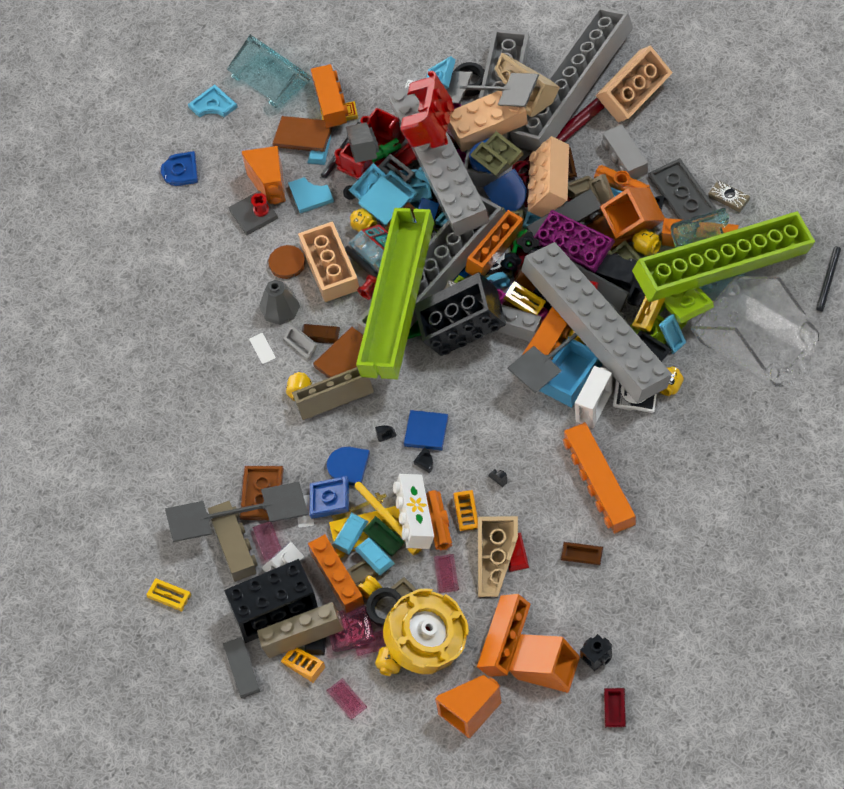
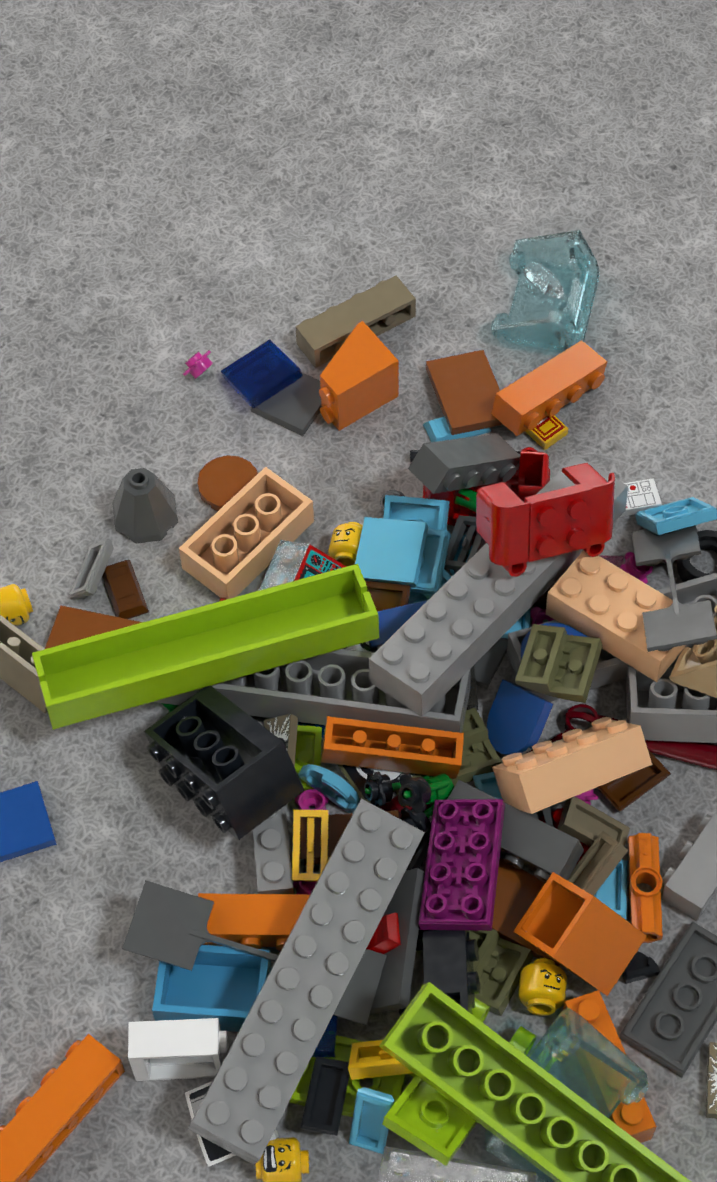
camera: 55 degrees right, 0 degrees up
(180, 169) = (318, 276): blue tile -> none
(203, 244) = (198, 364): none -> dark pink plate
(214, 102) = (457, 256): medium azure tile -> none
(225, 163) = (379, 307): none -> dark tan brick
(230, 218) = (261, 373): none -> clear blue tile
(258, 70) = (544, 280): none -> clear piece
(260, 204) = (299, 396): red bush -> none
(262, 348) = (63, 528): white sticker -> none
(308, 195) = (363, 454): medium azure tile -> none

